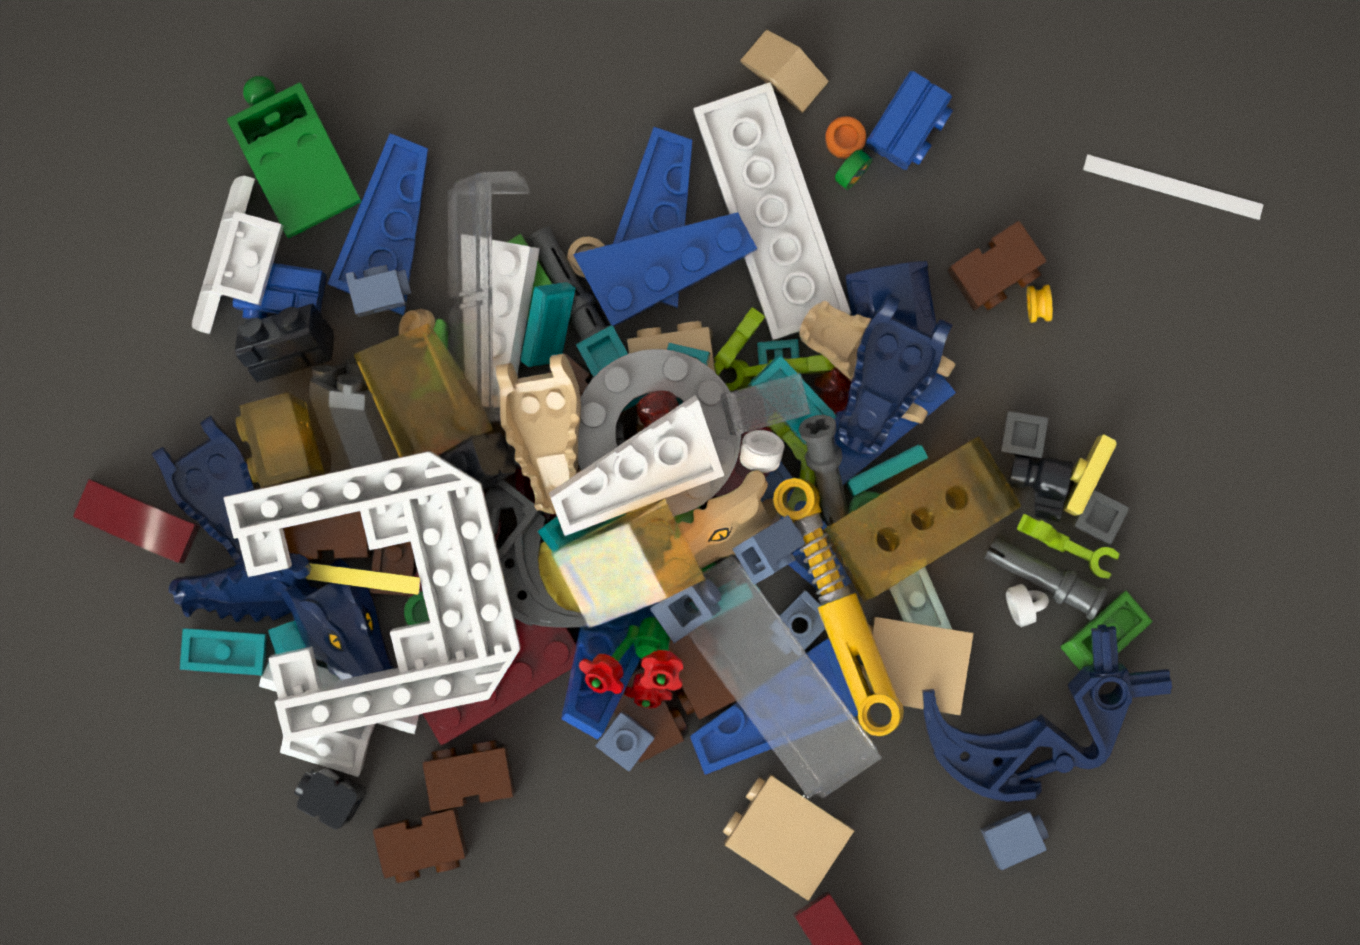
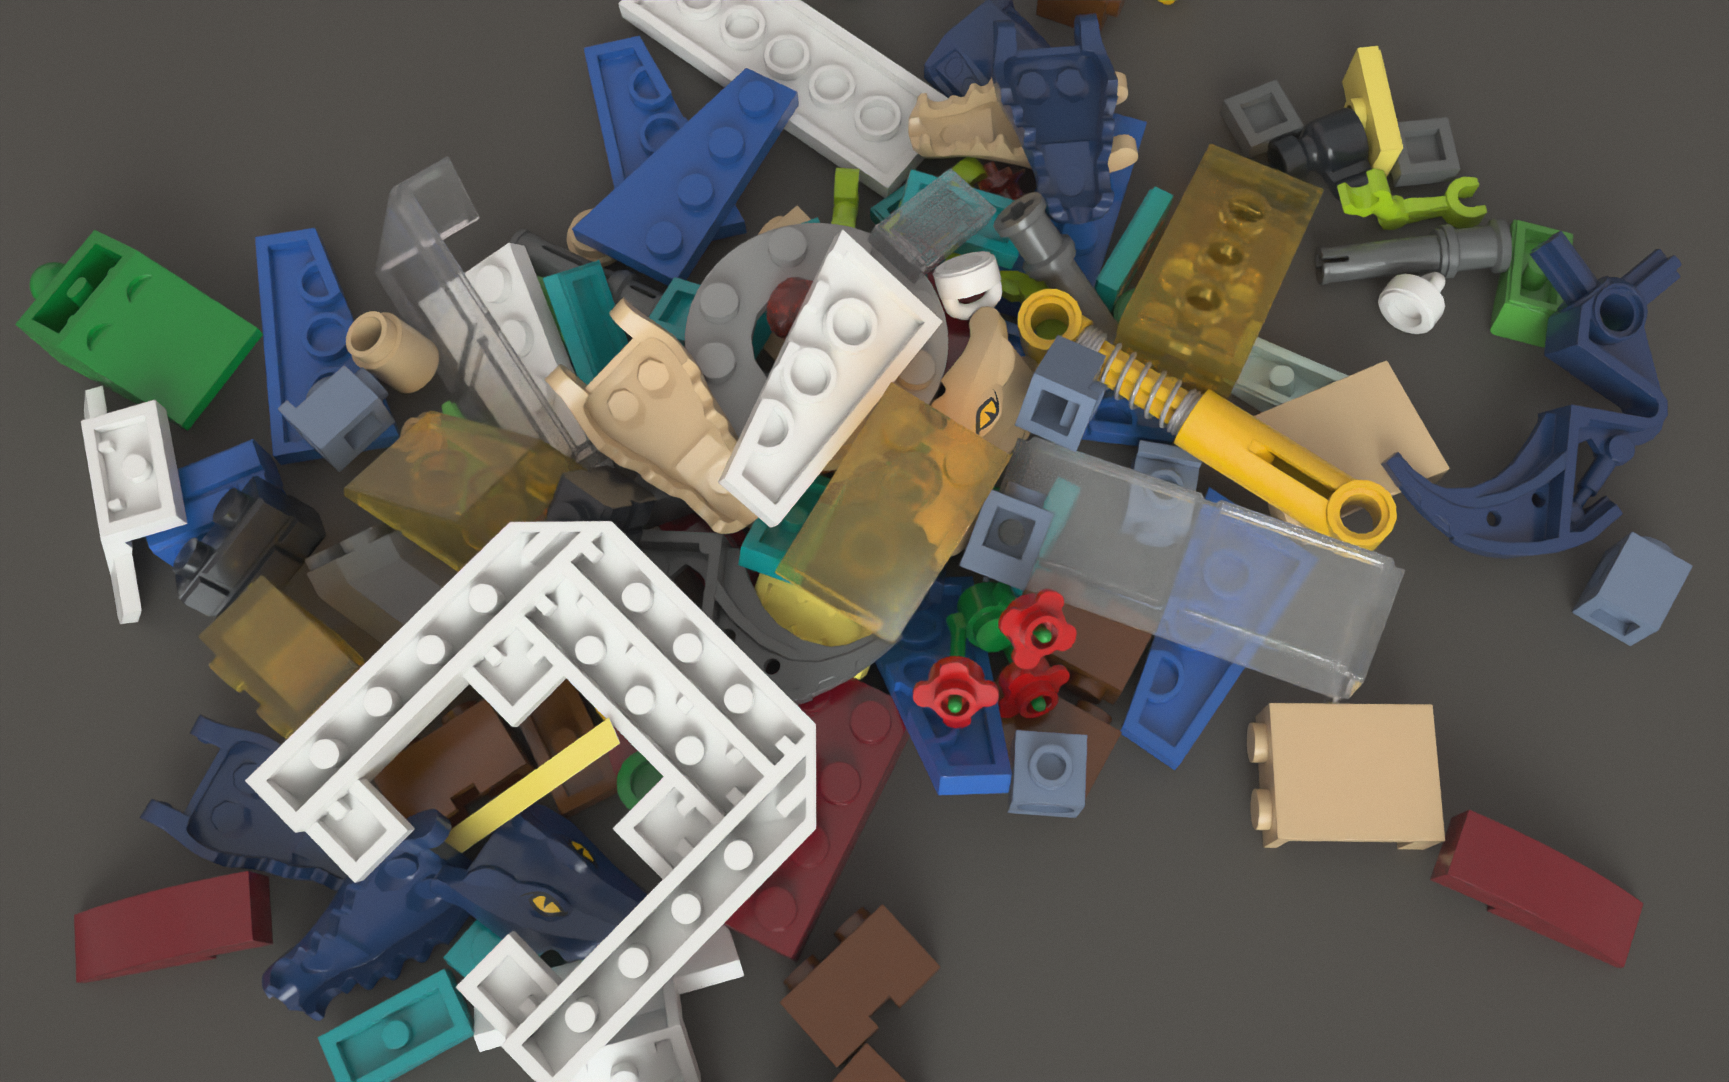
camera: 30 degrees left, 15 degrees down
(429, 265) = (392, 351): none -> tan brick

